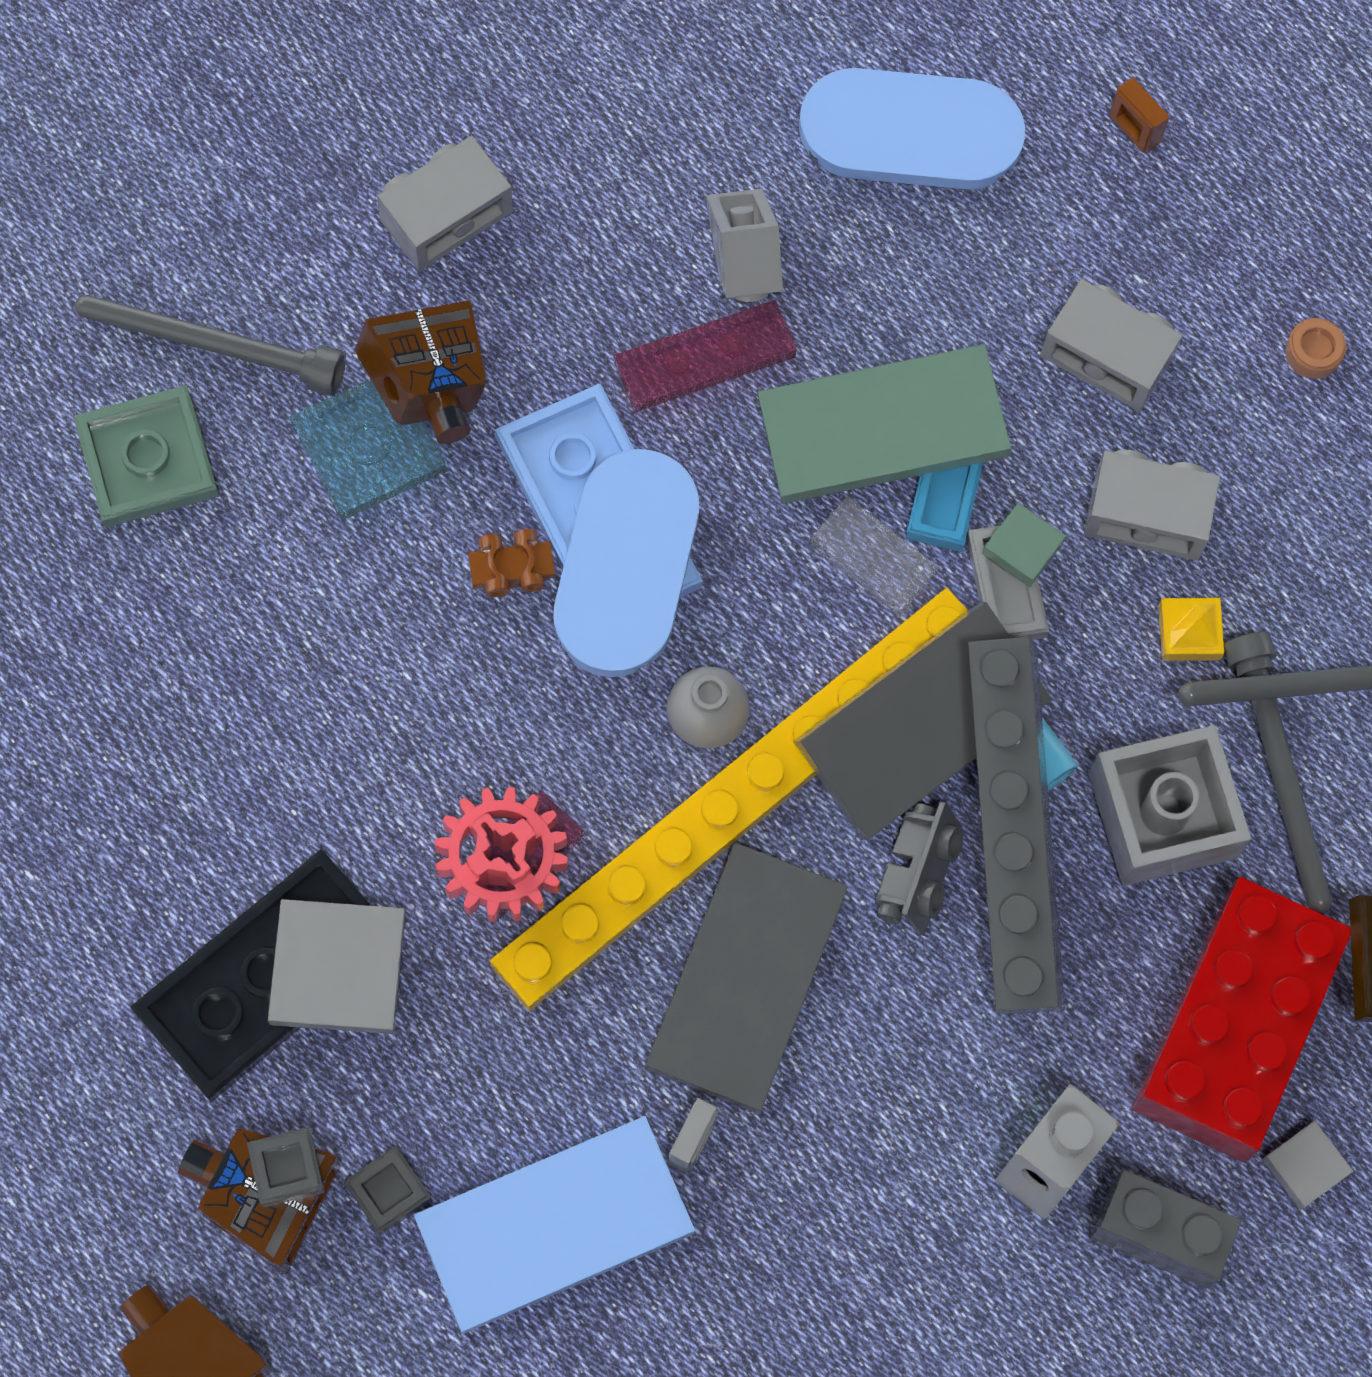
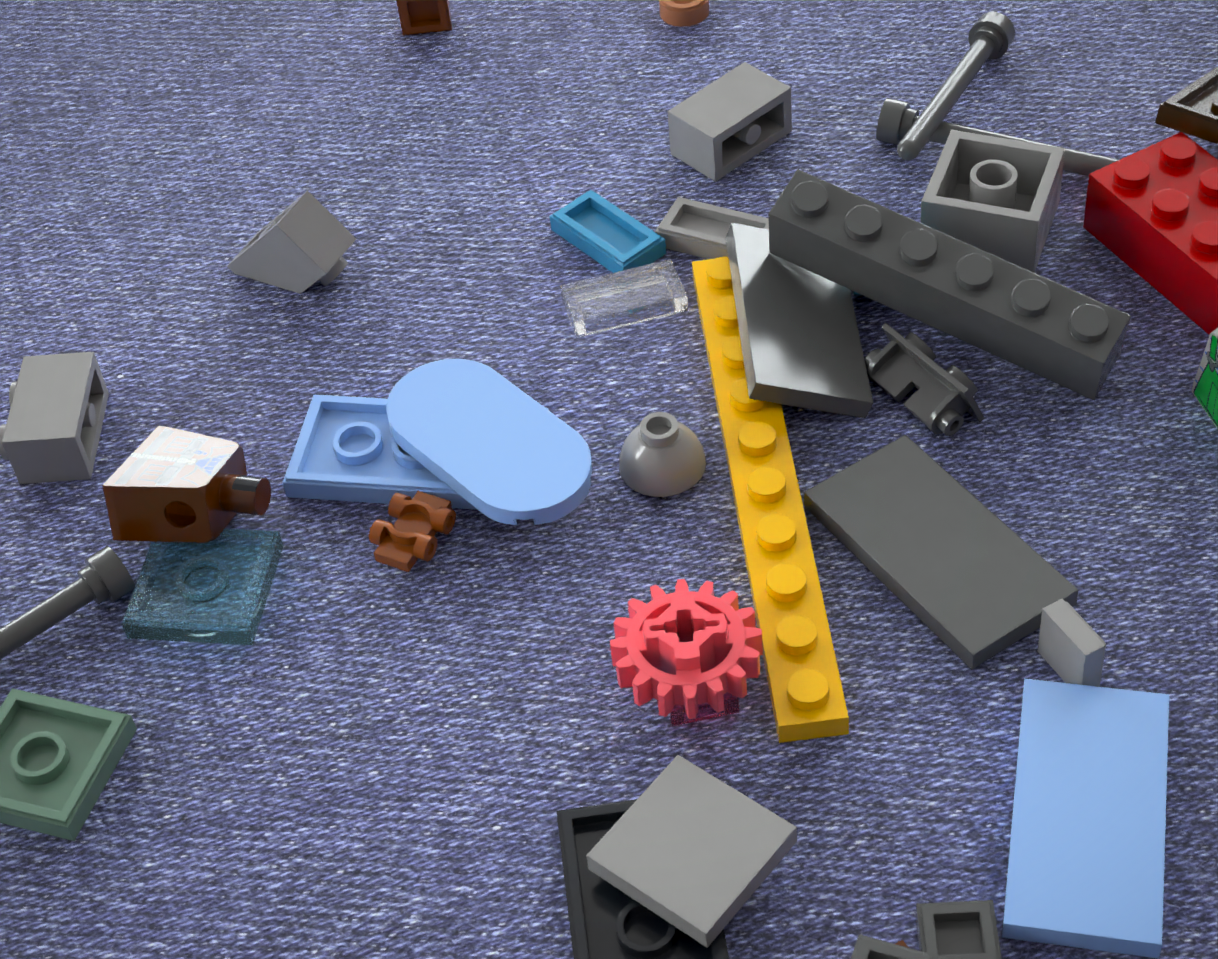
camera: 45 degrees left, 25 degrees down
(704, 356) = (355, 327): clear pink tile -> none
(884, 424) = (520, 241): sand green tile -> none
(911, 128) = (301, 130): light blue tile -> none
(1024, 544) = (699, 196): sand green tile -> none
(1111, 344) = (583, 90): light grey brick -> none
(1191, 629) = (846, 149): yellow tile -> none

